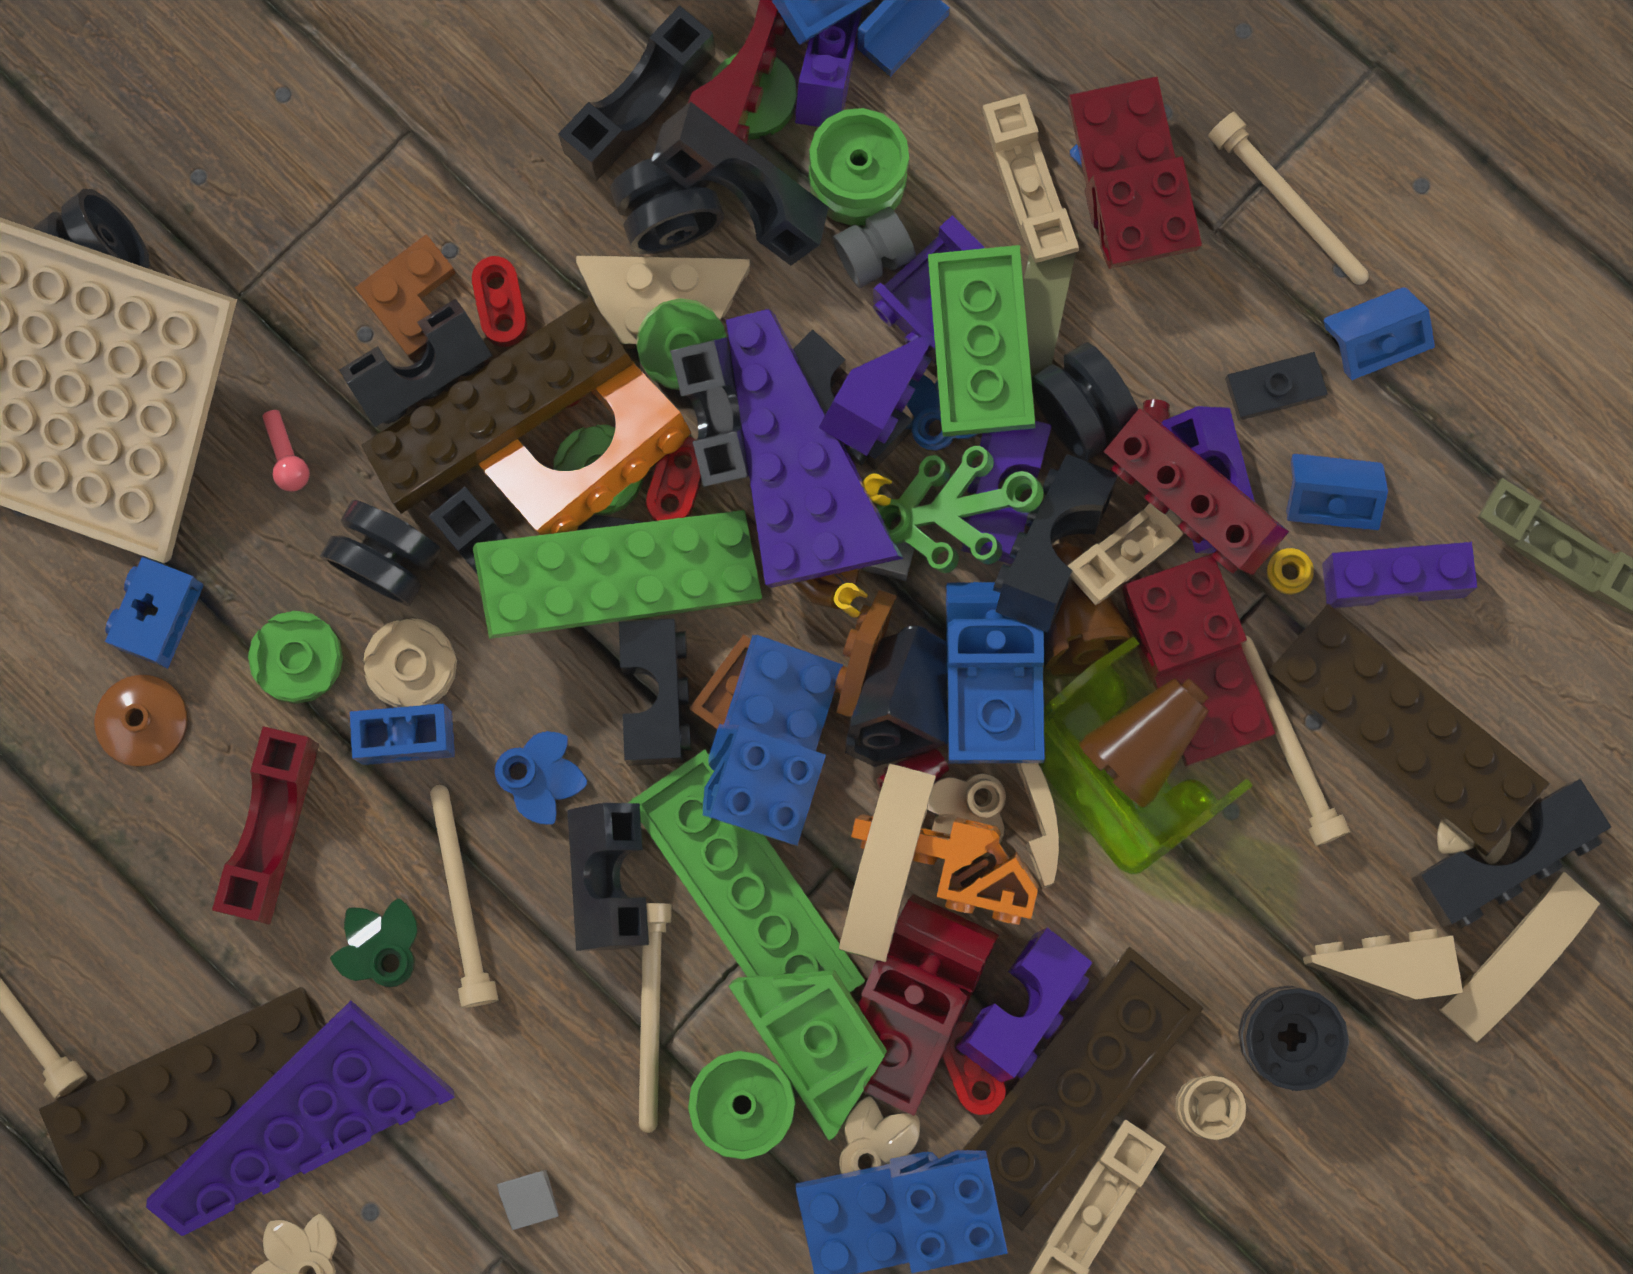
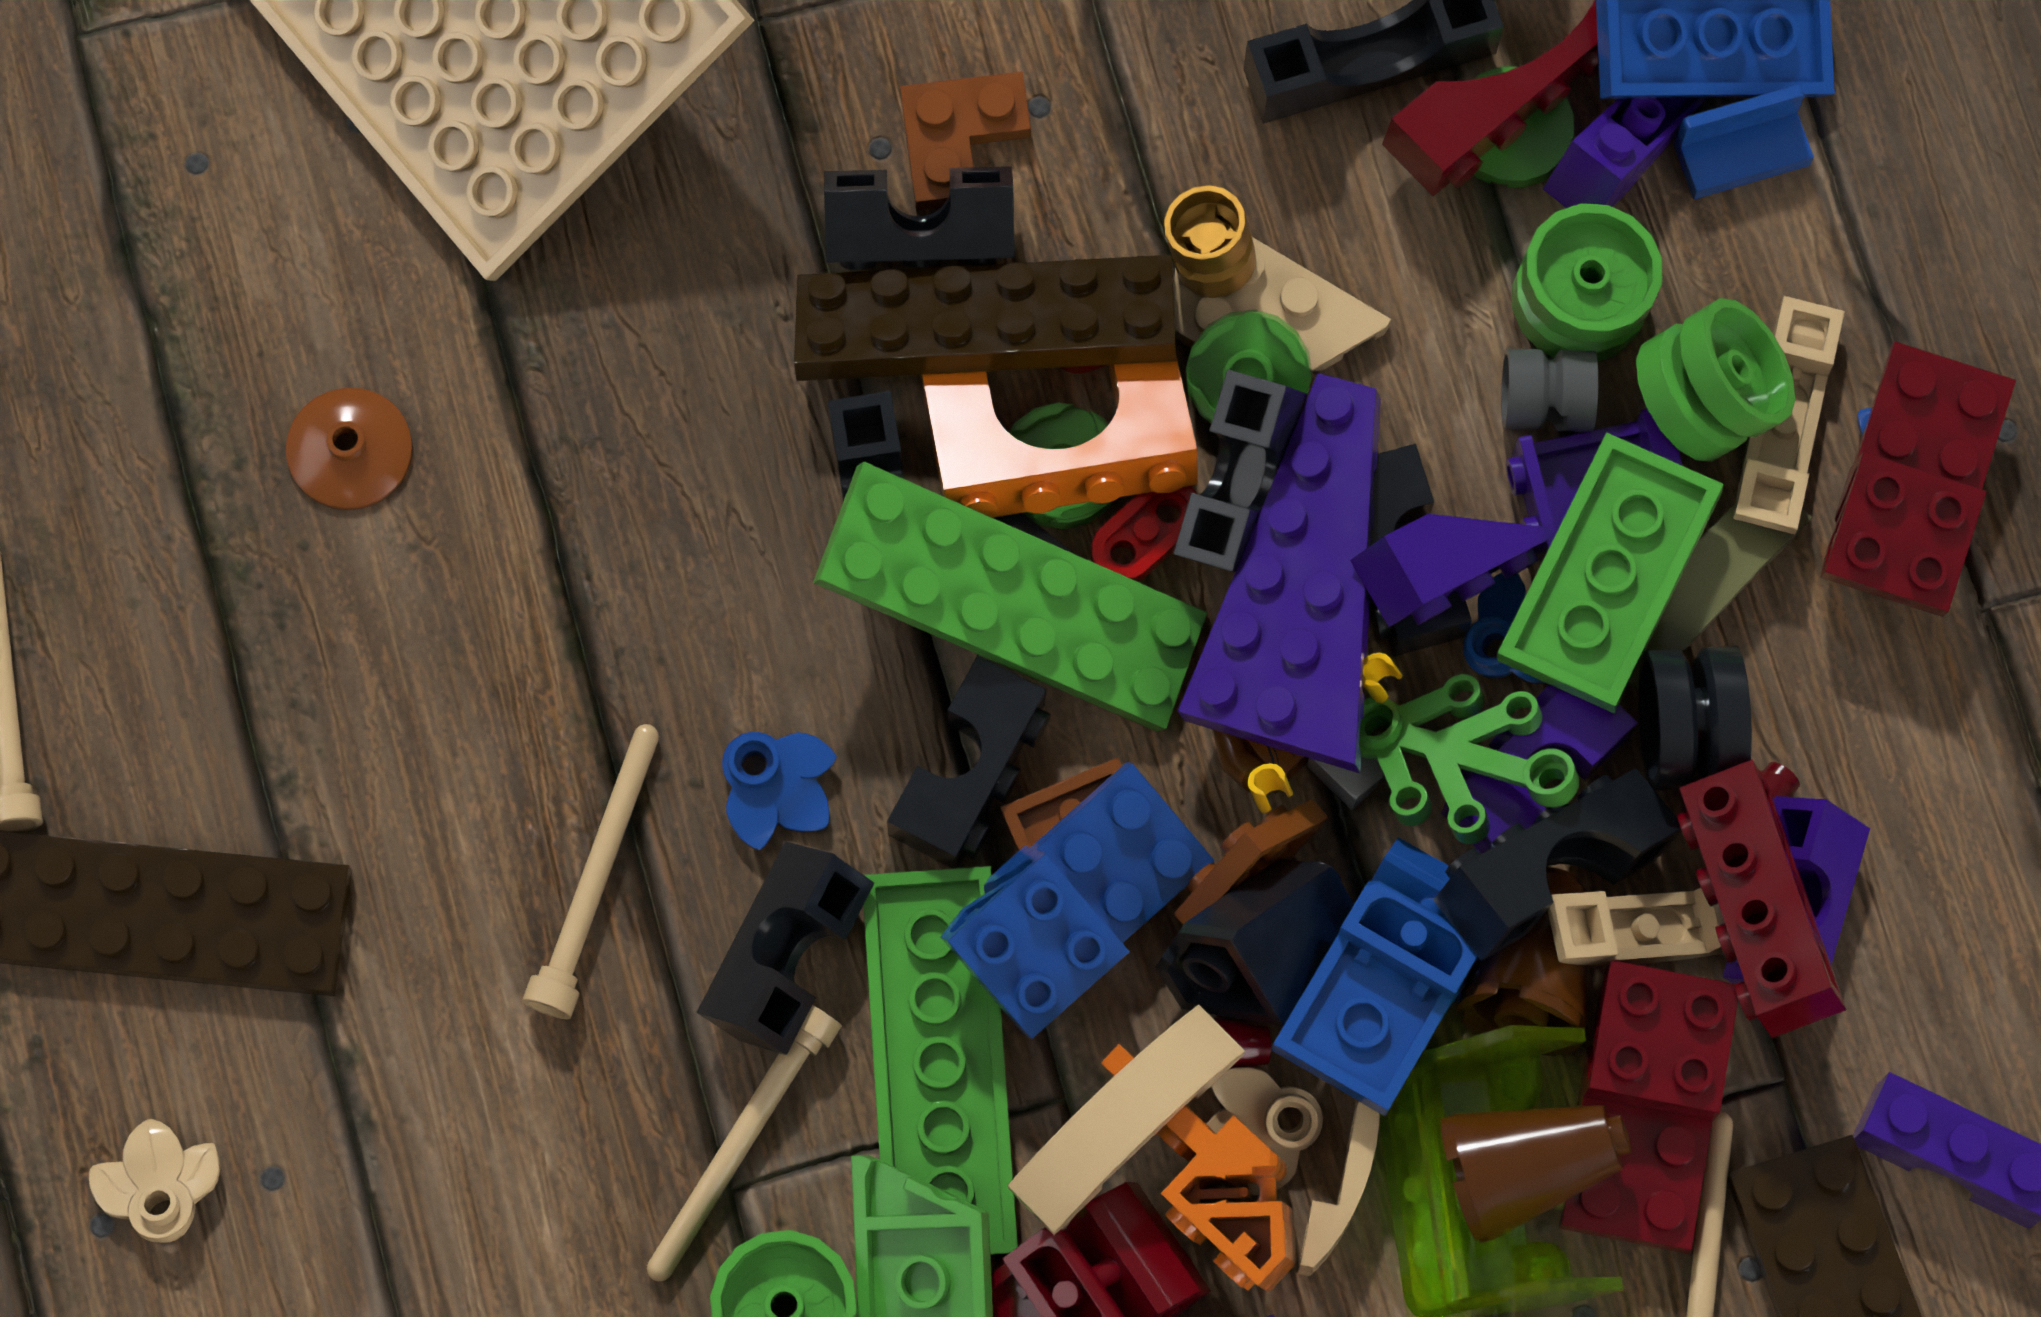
camera: 25 degrees right, 5 degrees down
(159, 635) = (422, 357): blue brick -> none
(258, 864) = (465, 616): dark red arch -> none
(290, 471) = (696, 257): coral bar -> none
(295, 657) = (573, 479): bright green tile -> none
(314, 1109) = (280, 1016): dark purple wing -> none
(373, 940) = (466, 863): dark green plate -> none
(384, 546) = (753, 408): black wheel -> none
(402, 734) = (644, 639): blue brick -> none
(409, 663) = (701, 565): tan tile -> none
(499, 303) = (1060, 202): red plate -> none
(528, 1199) = (465, 1272): light grey slope -> none
(609, 274) = (1210, 241): none -> pearl gold wheel
(662, 211) = (1330, 195): black wheel -> none
(783, 212) = (1461, 283): black arch -> none
(974, 182) = (1715, 380): none -> bright green wheel
(1276, 386) = (1946, 838): black plate -> none
(1297, 559) = (1843, 1056): yellow plate -> none
(1337, 492) = (1943, 1007): blue panel -> none

